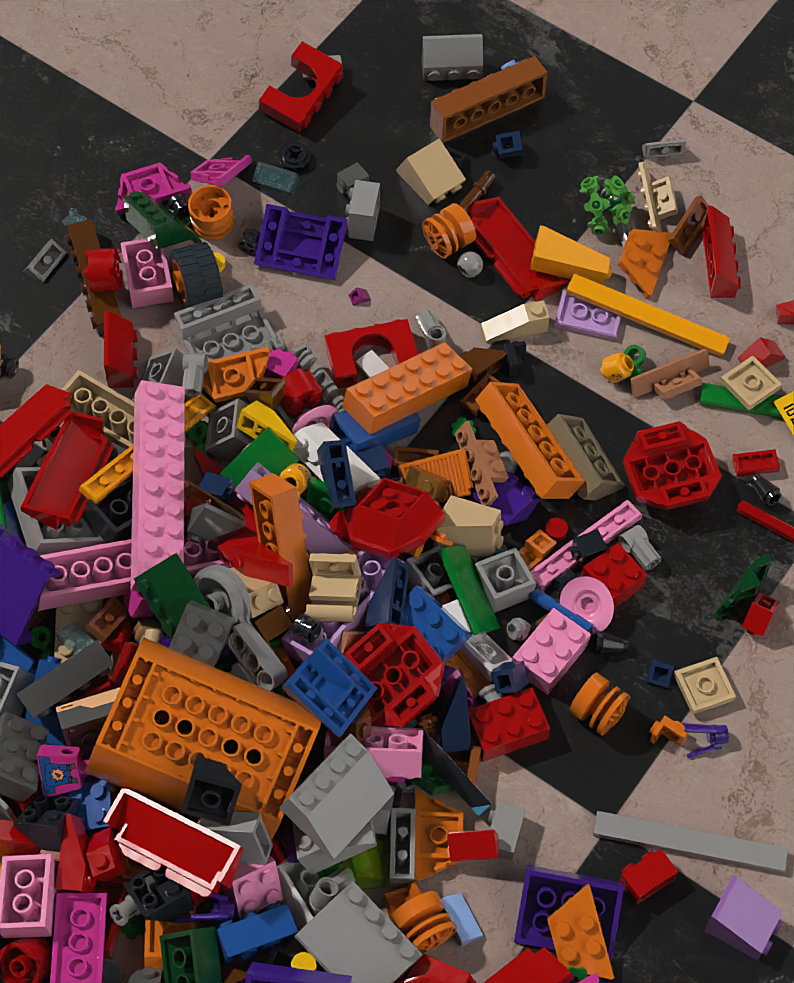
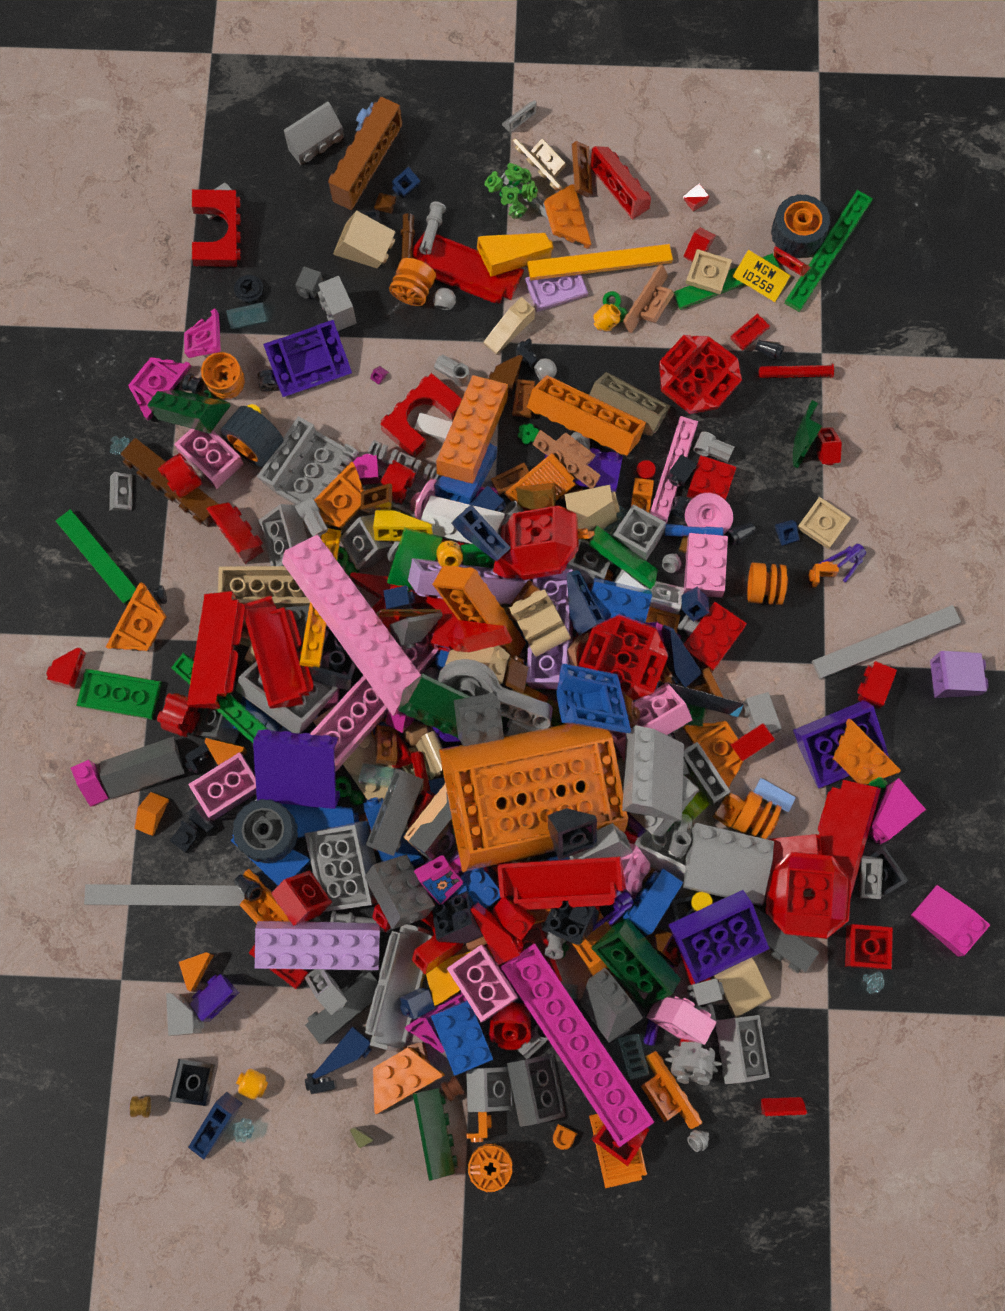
camera: 30 degrees left, 15 degrees up
(307, 628) = (542, 664): black wheel -> none
(478, 153) = (385, 203): none -> reddish brown slope
(511, 192) = (433, 220): none -> light grey pin
(524, 378) = (545, 367): none -> light grey piece

